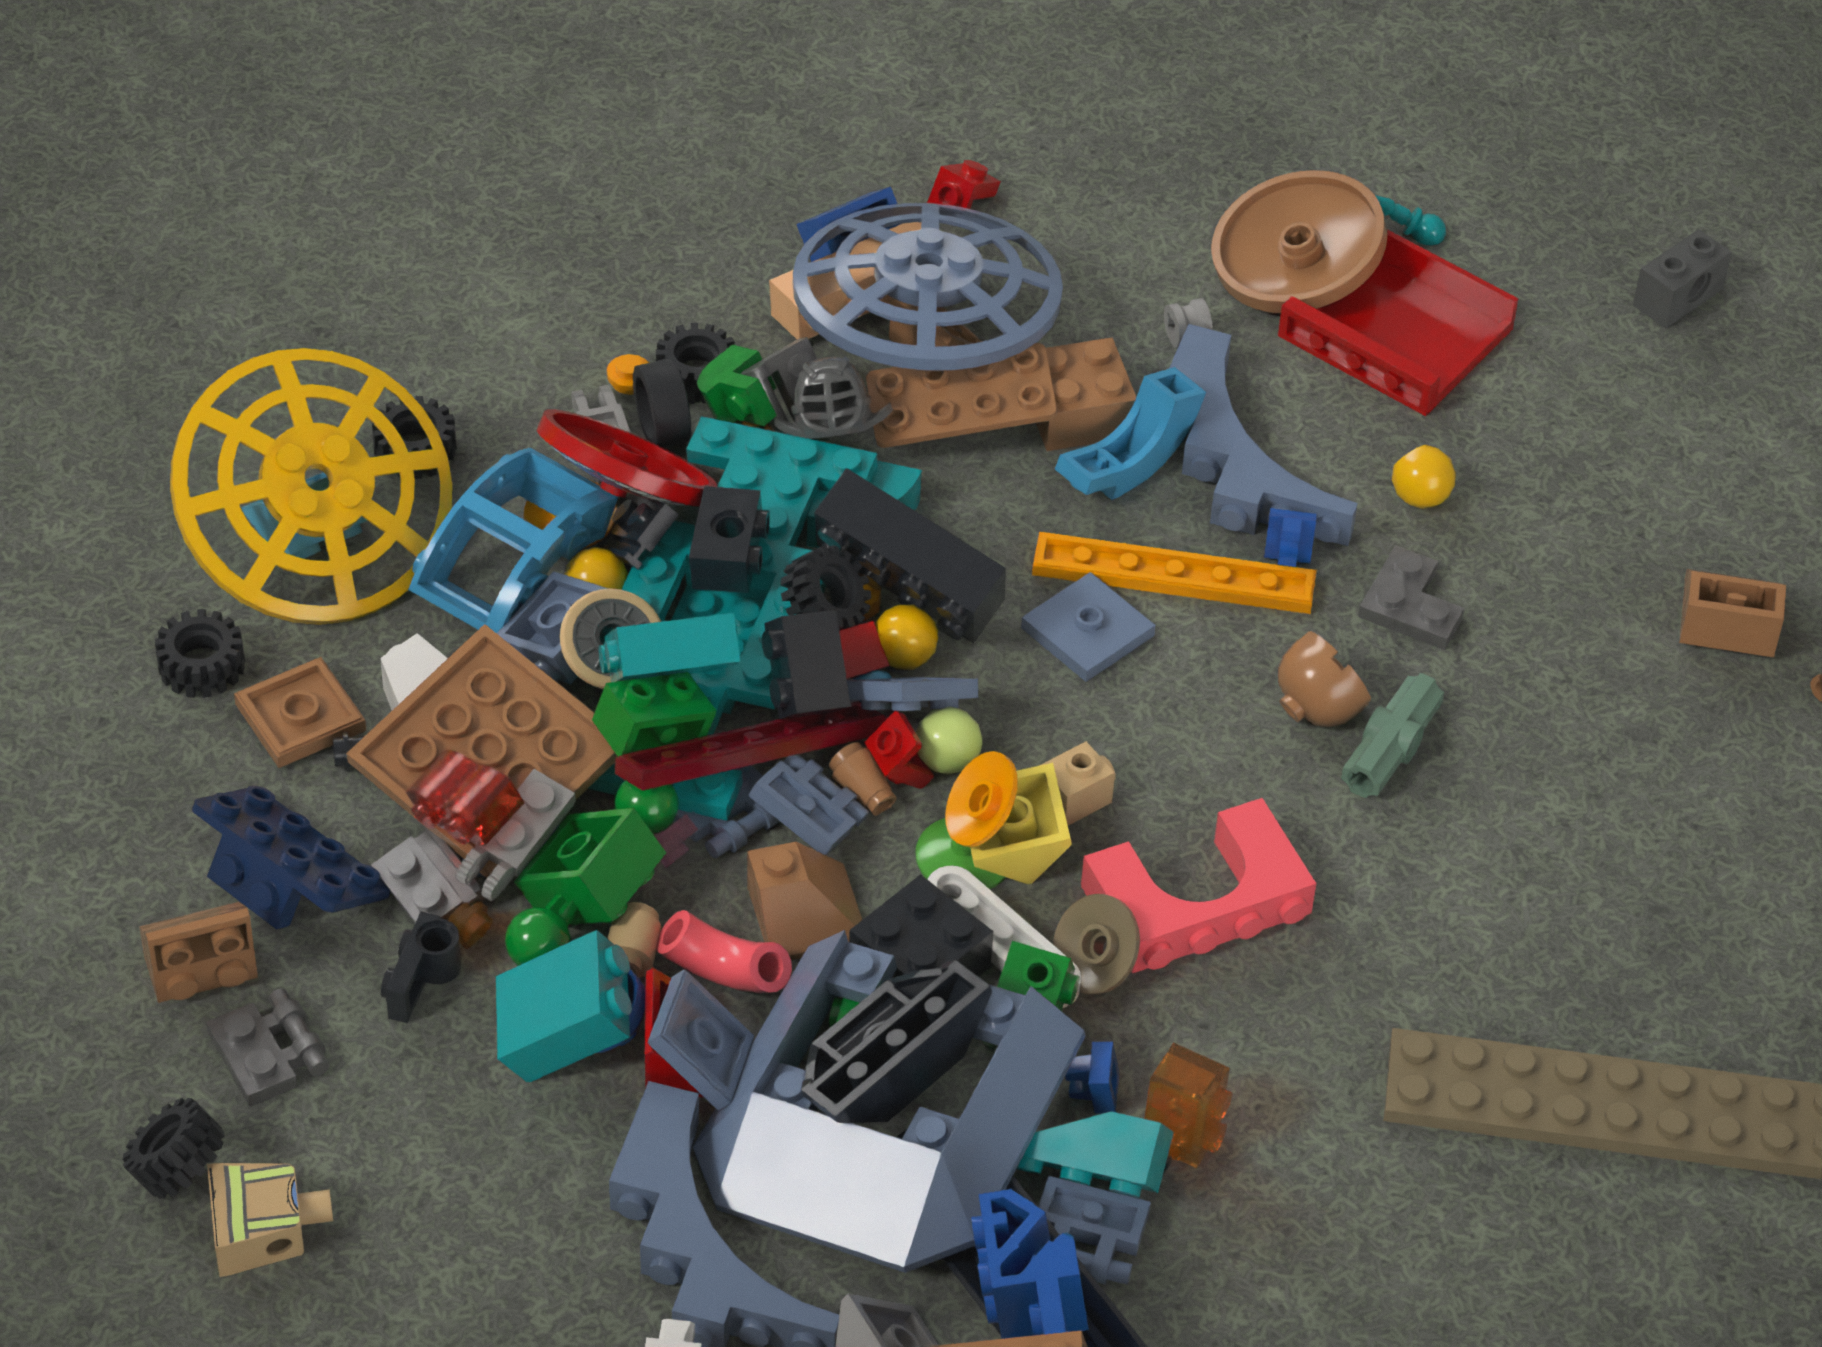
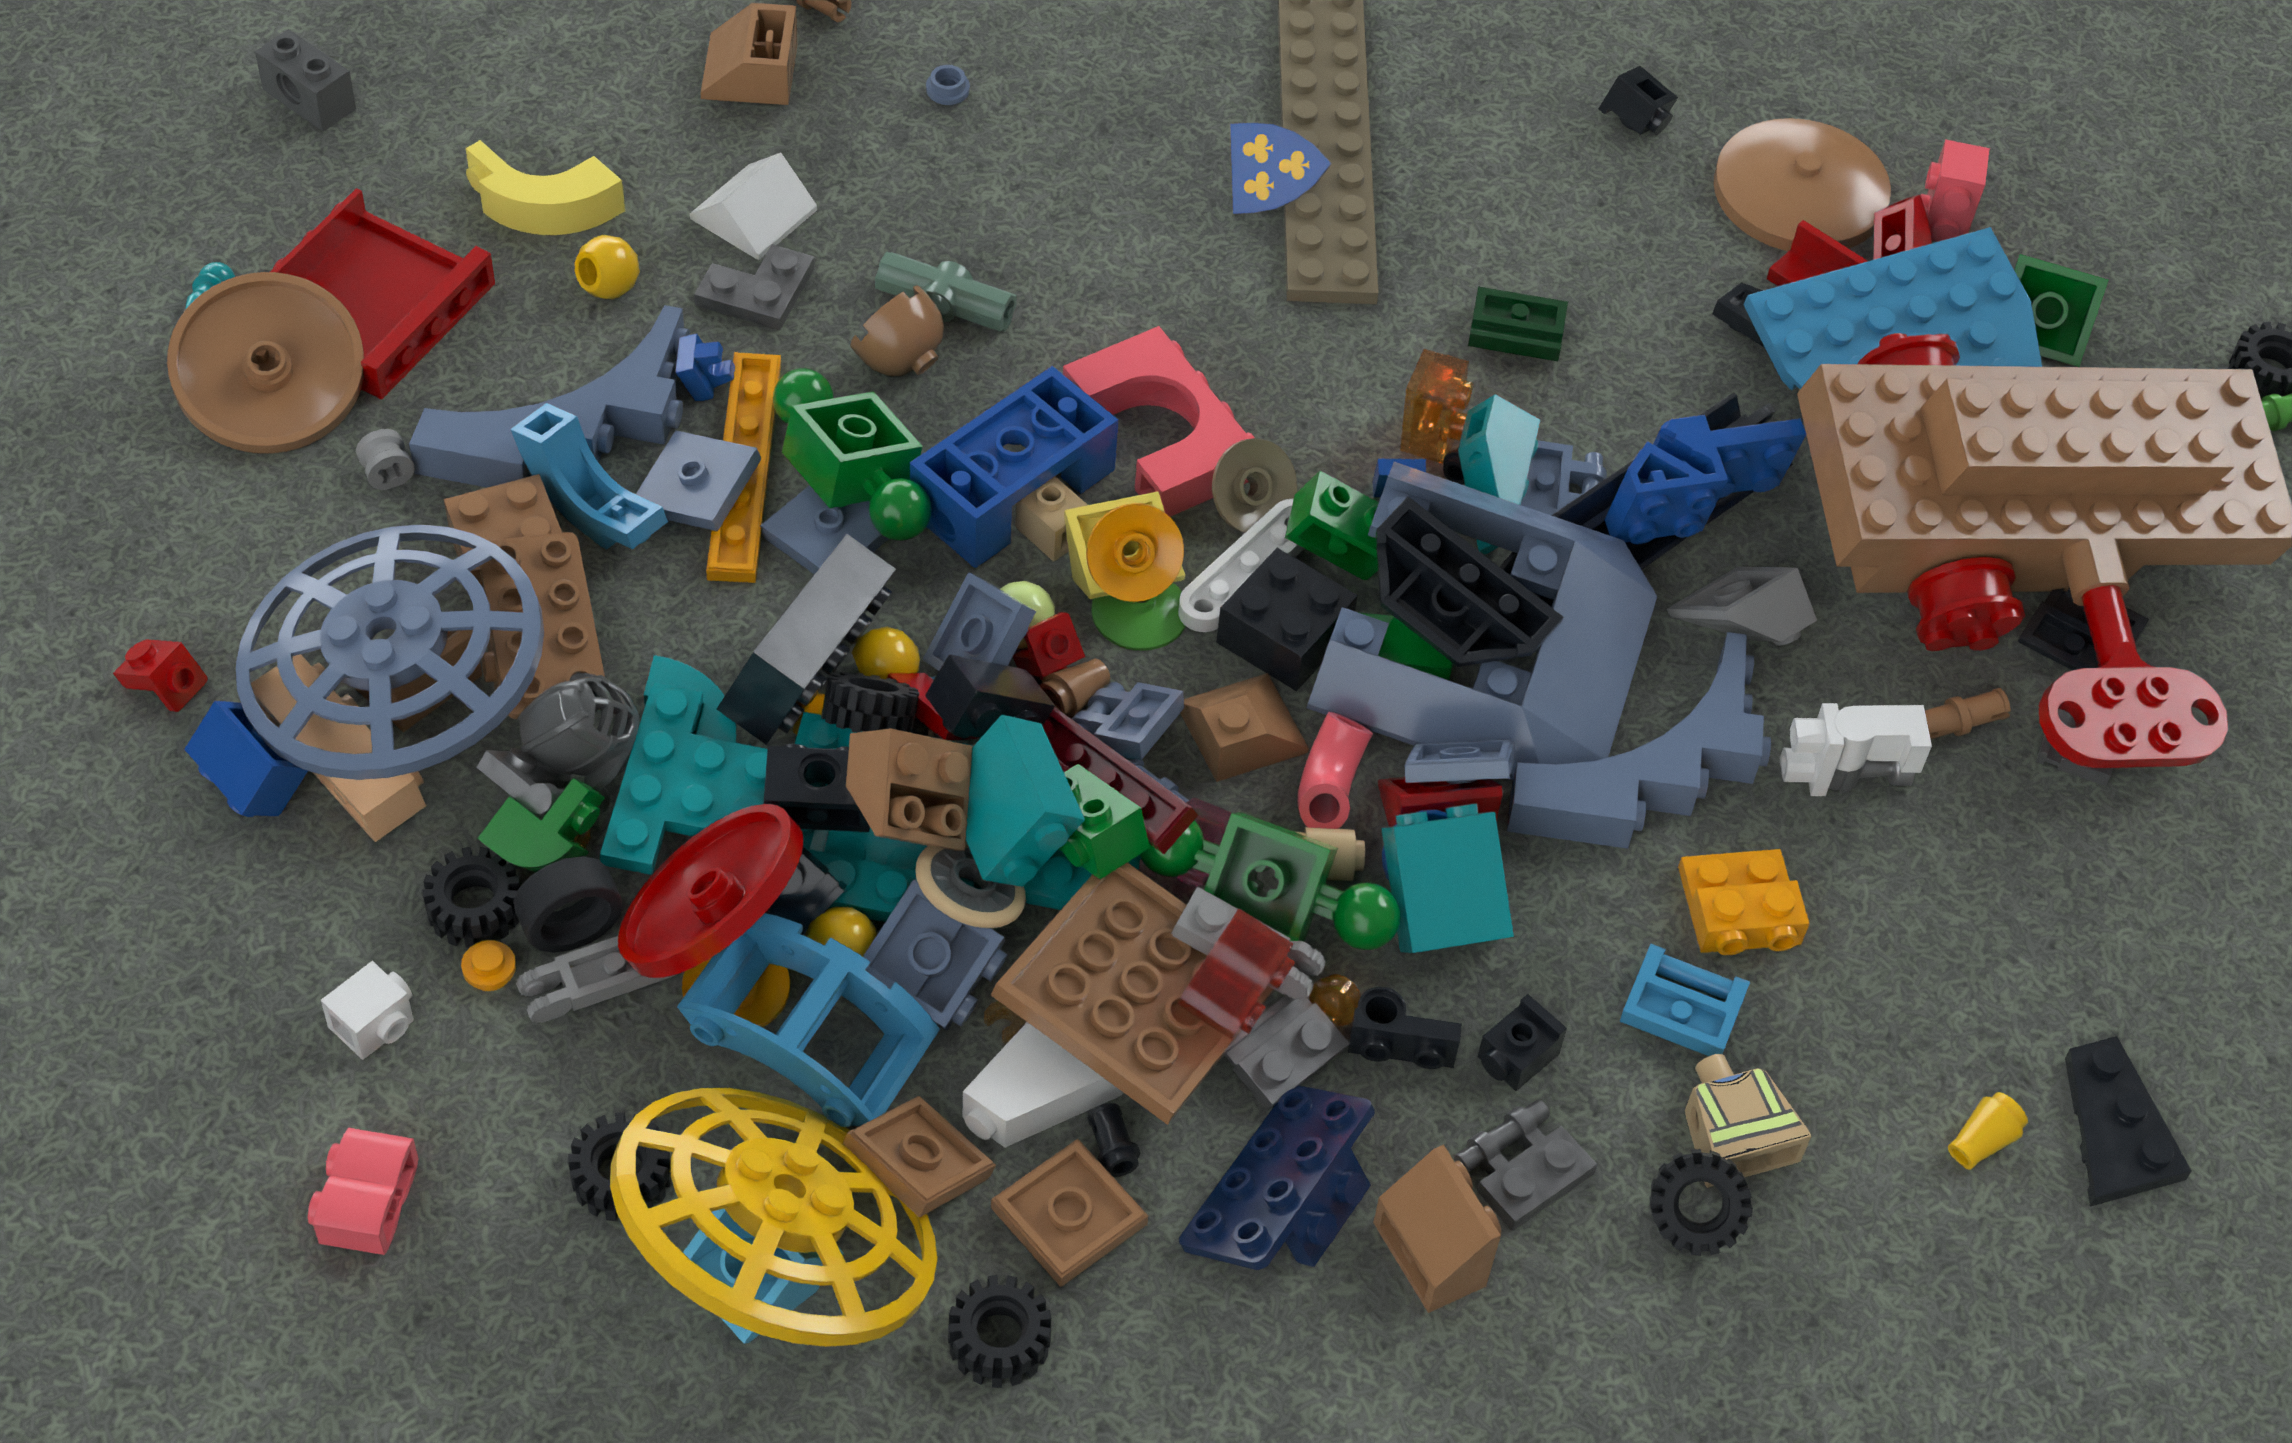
camera: 100 degrees left, 5 degrees up
(371, 610) = (919, 1156): none -> medium nougat plate
(388, 1058) = (1521, 1043): none -> black brick
(397, 1196) = (1680, 1012): none -> dark azure plate
(427, 292) = (364, 1191): none -> coral brick
(517, 1283) = (1743, 902): none -> light orange plate
(593, 296) = (369, 1009): none -> white brick
(692, 572) = (911, 786): none -> medium nougat slope
(1145, 527) = (699, 479): none -> sand blue plate
(1155, 623) = (852, 452): none -> green brick
(1166, 767) = (979, 481): none -> blue plate
(1334, 1235) = (1518, 323): none -> dark green plate
(1519, 602) = (757, 206): none -> white slope
(1520, 459) = (544, 204): none -> light yellow arch
(1561, 1020) = (1271, 166): none -> blue shield
(1710, 772) = (947, 85): none -> sand blue plate

